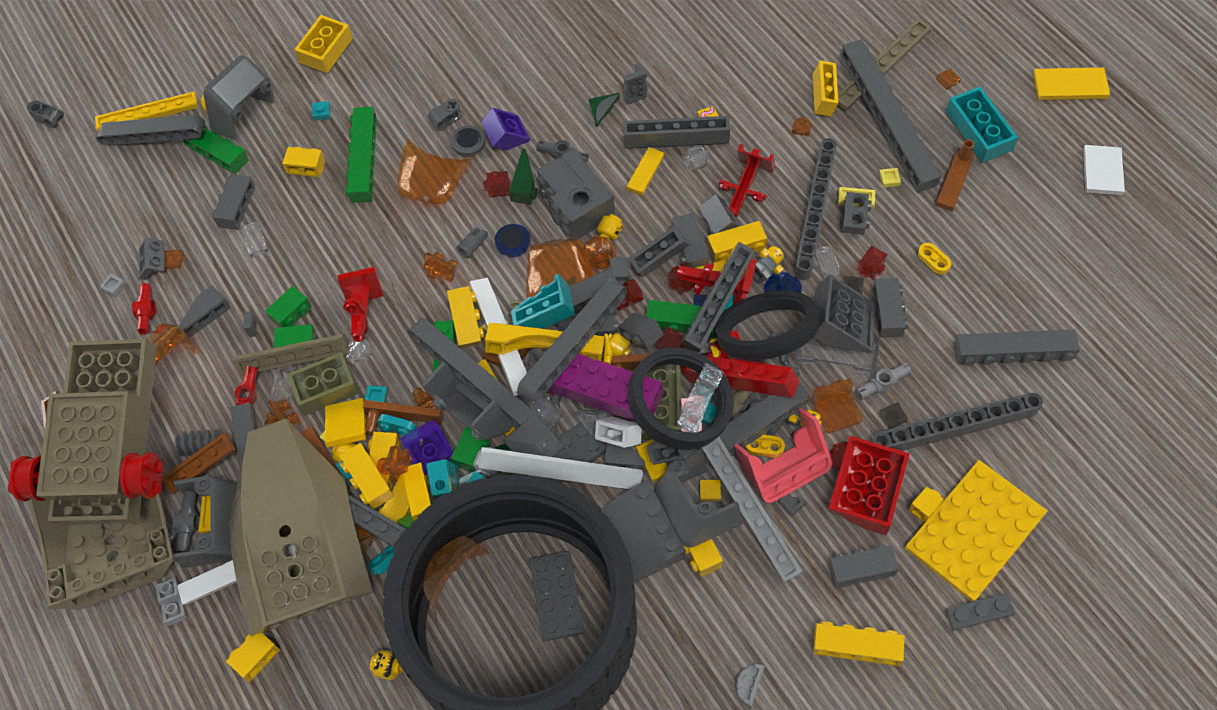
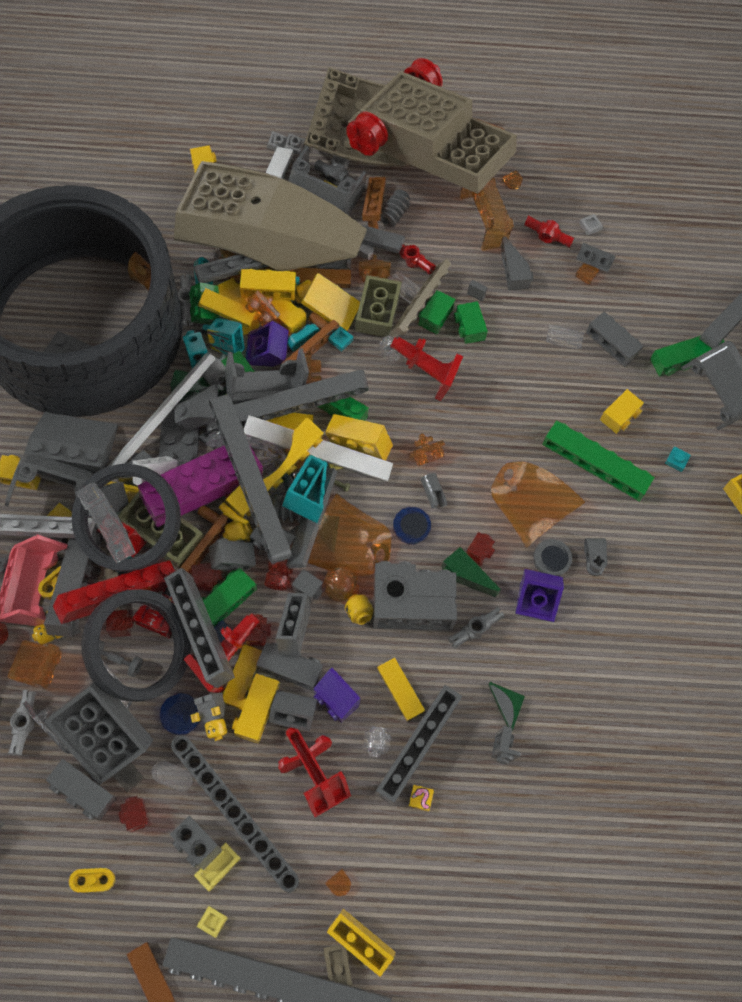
camera: 115 degrees right, 5 degrees up
(686, 195) = (336, 696): none -> dark purple slope

